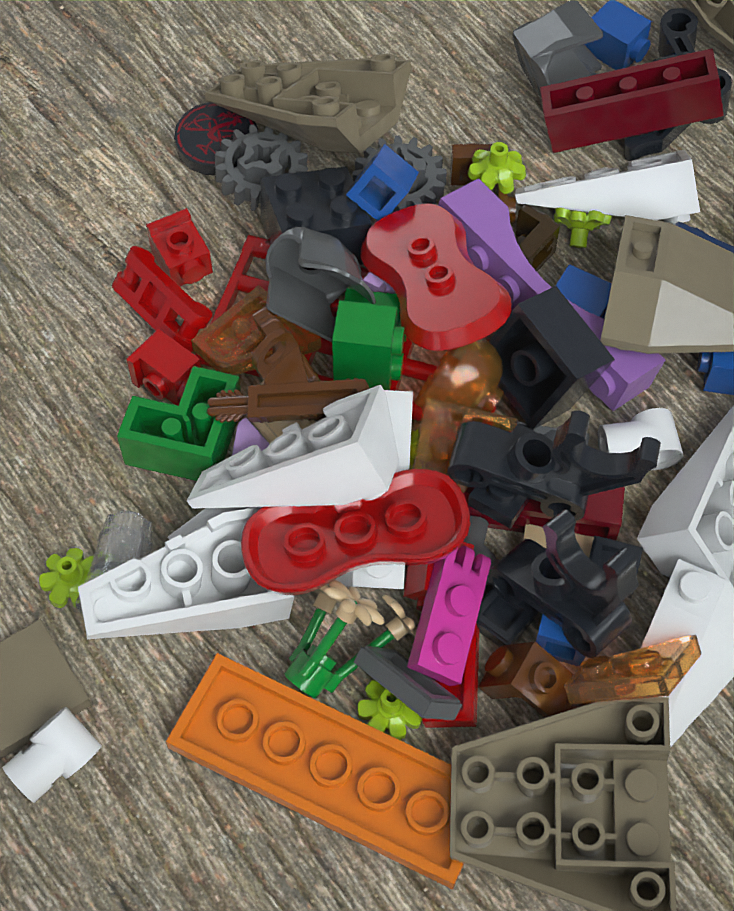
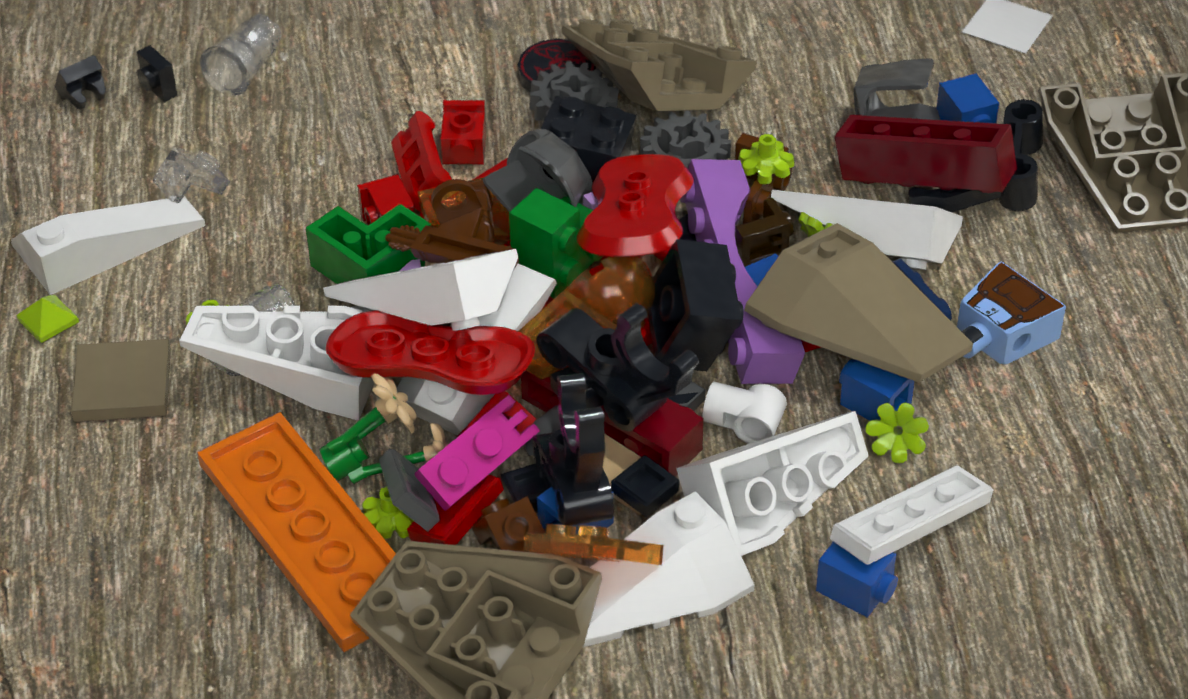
camera: 30 degrees right, 15 degrees down
(56, 750) = (114, 425): white piece -> none
(382, 183) = (650, 129): blue brick -> none

